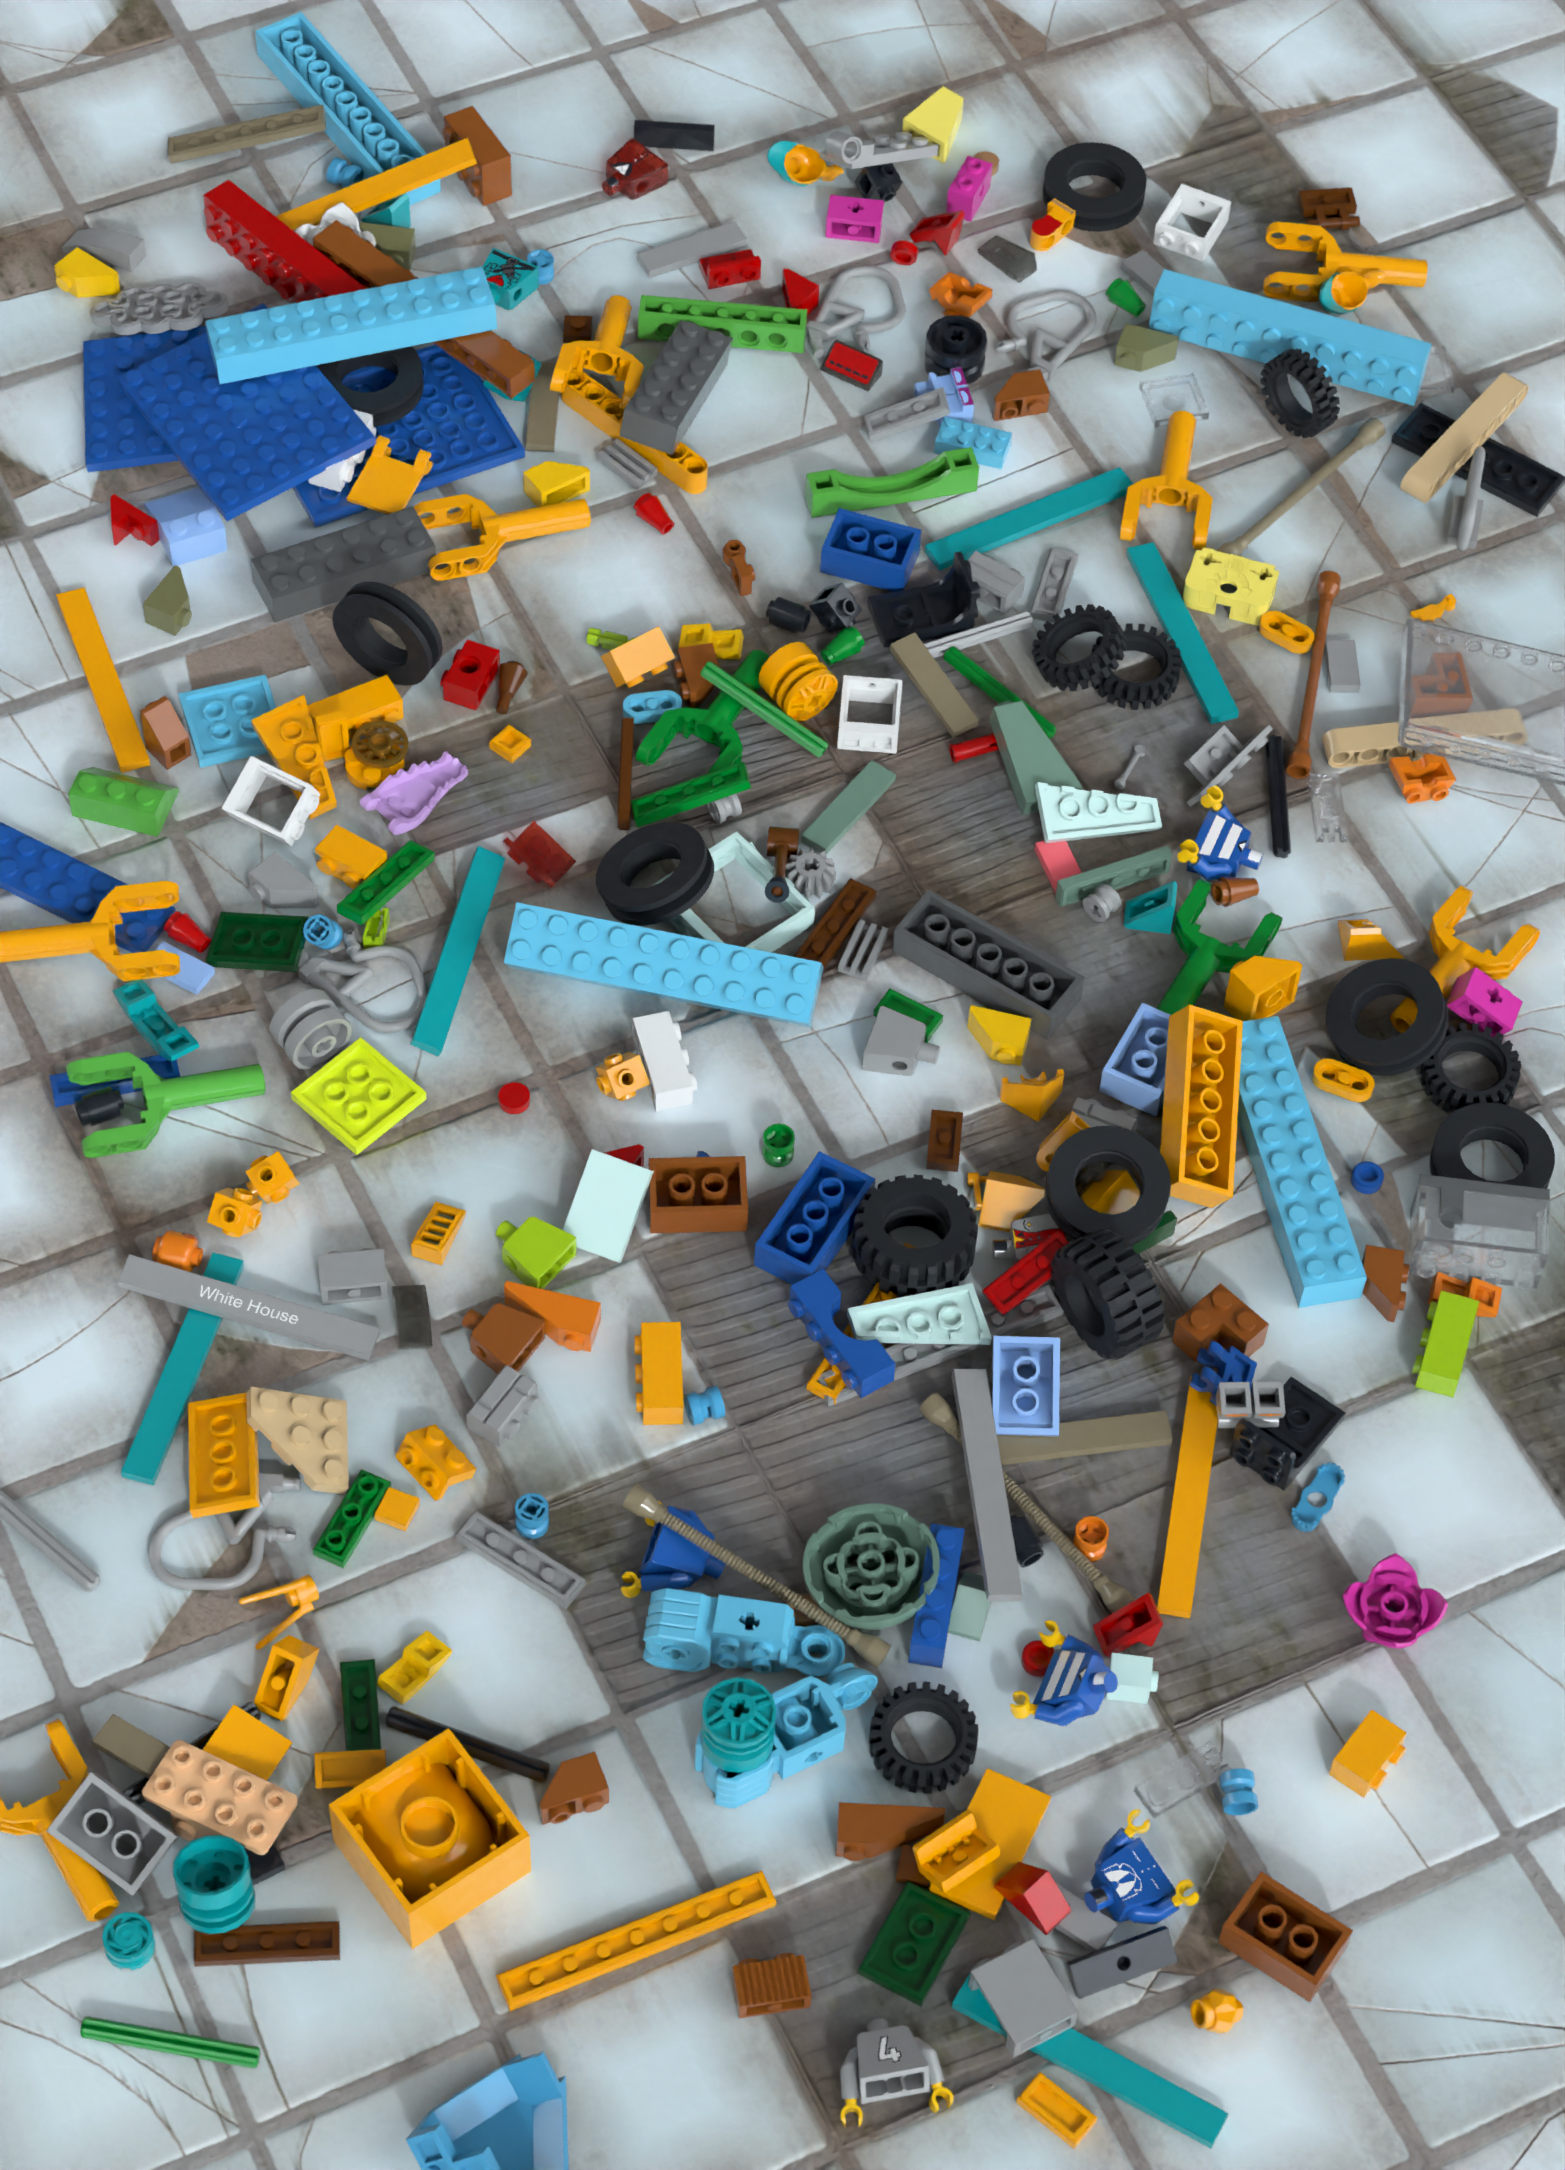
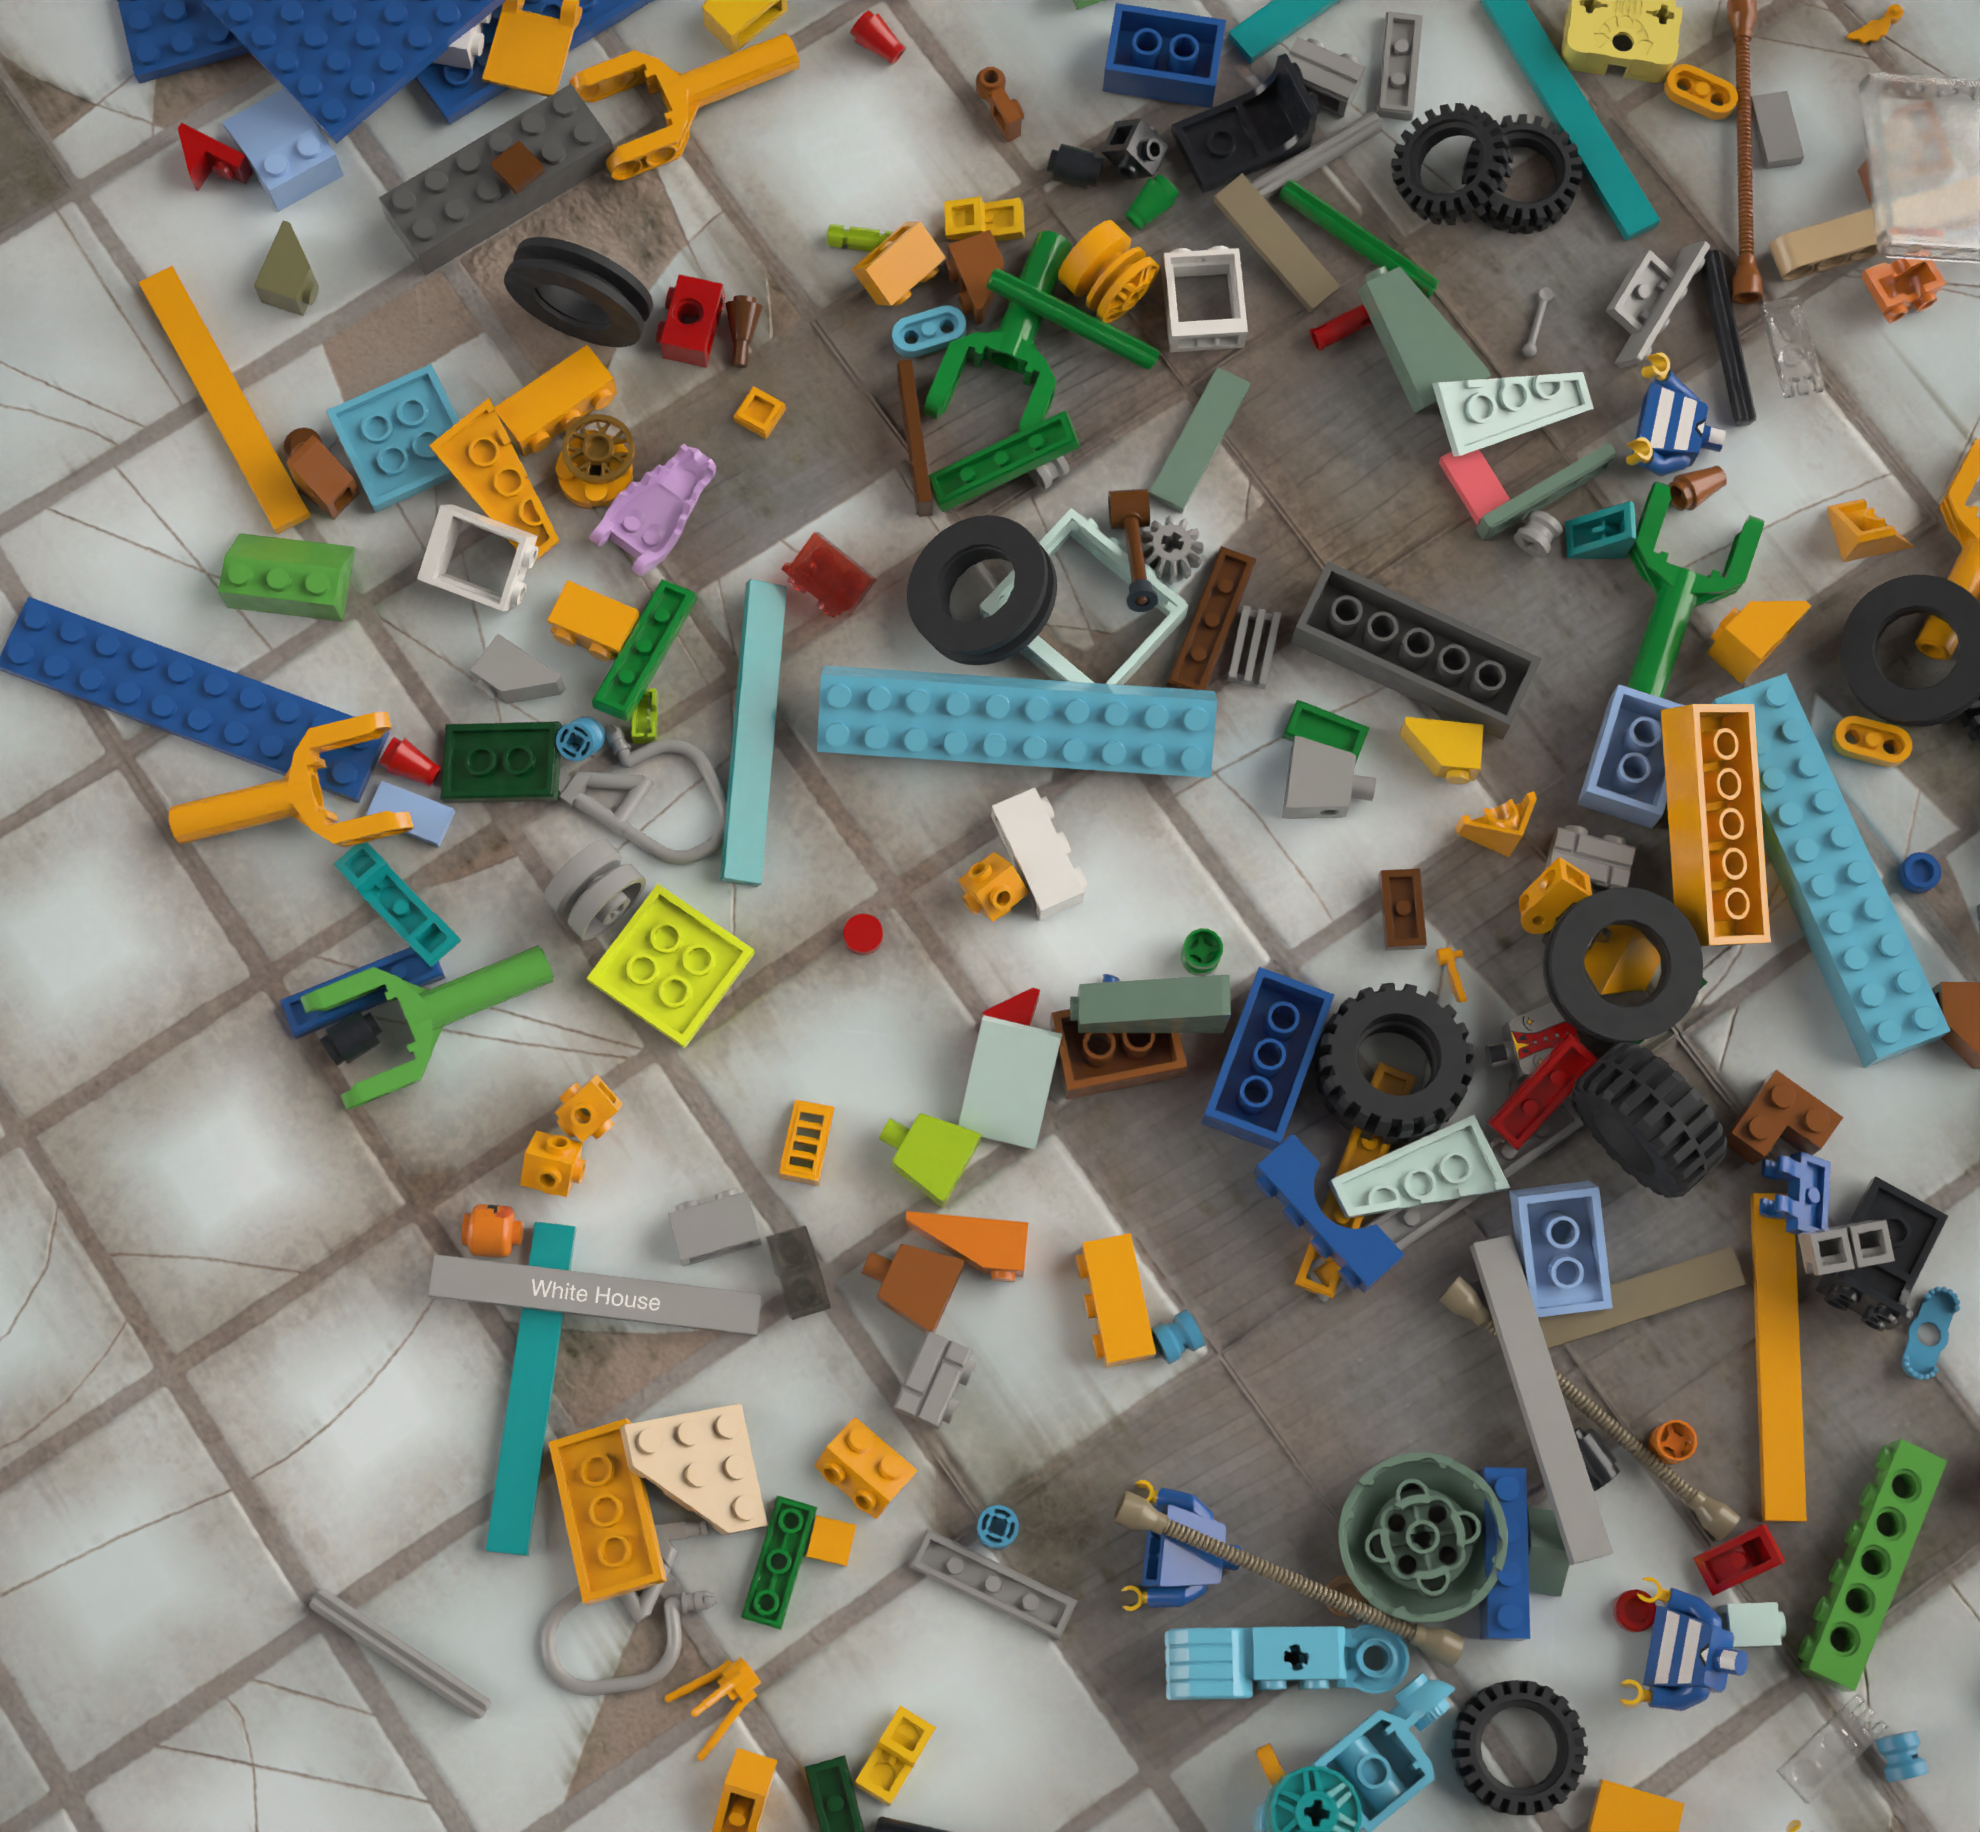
camera: 10 degrees left, 20 degrees up
(332, 735) = (536, 448): light orange tile -> none
(359, 550) = (517, 167): none -> reddish brown tile
(729, 1156) = (1154, 1005): none -> sand green slope
(1007, 1199) = (1495, 979): light orange slope -> none
(1199, 1719) = (1921, 1475): none -> bright green brick

